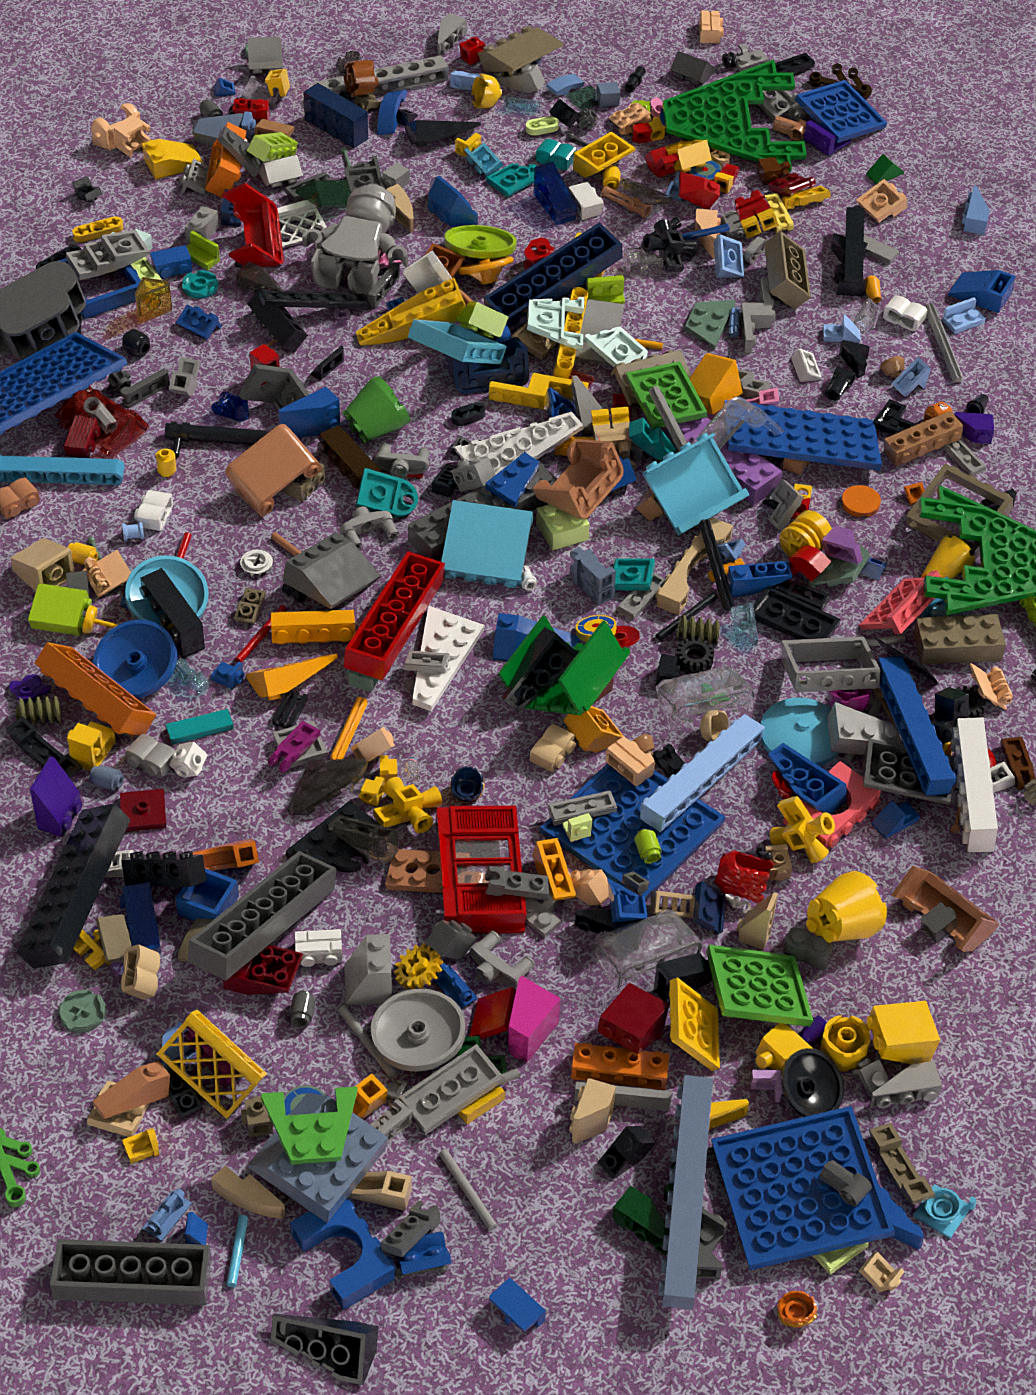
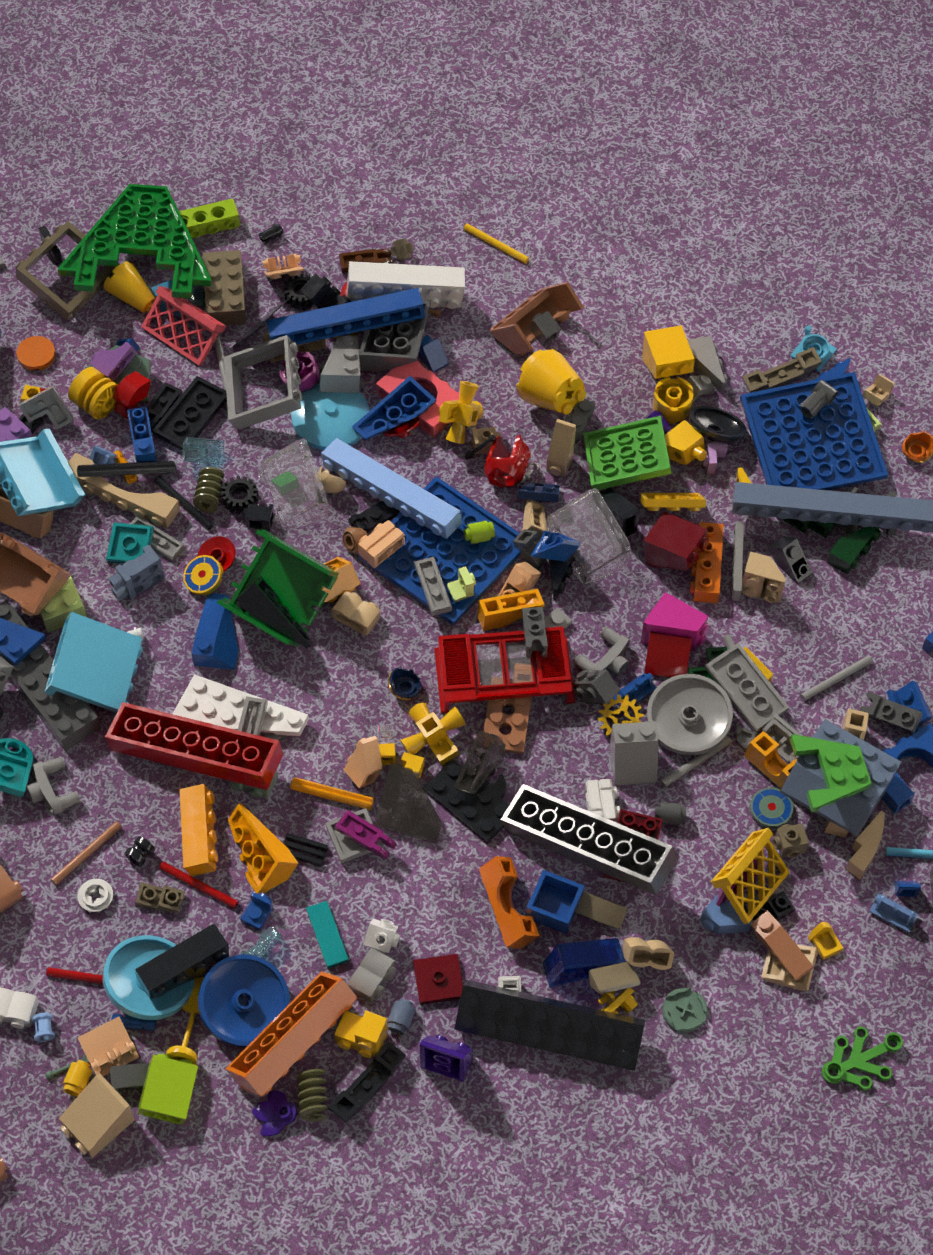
camera: 90 degrees left, 10 degrees up
(165, 869) = (539, 934): black brick -> none
(330, 571) = (124, 814): dark grey slope -> none
(913, 492) = (28, 308): orange slope -> none

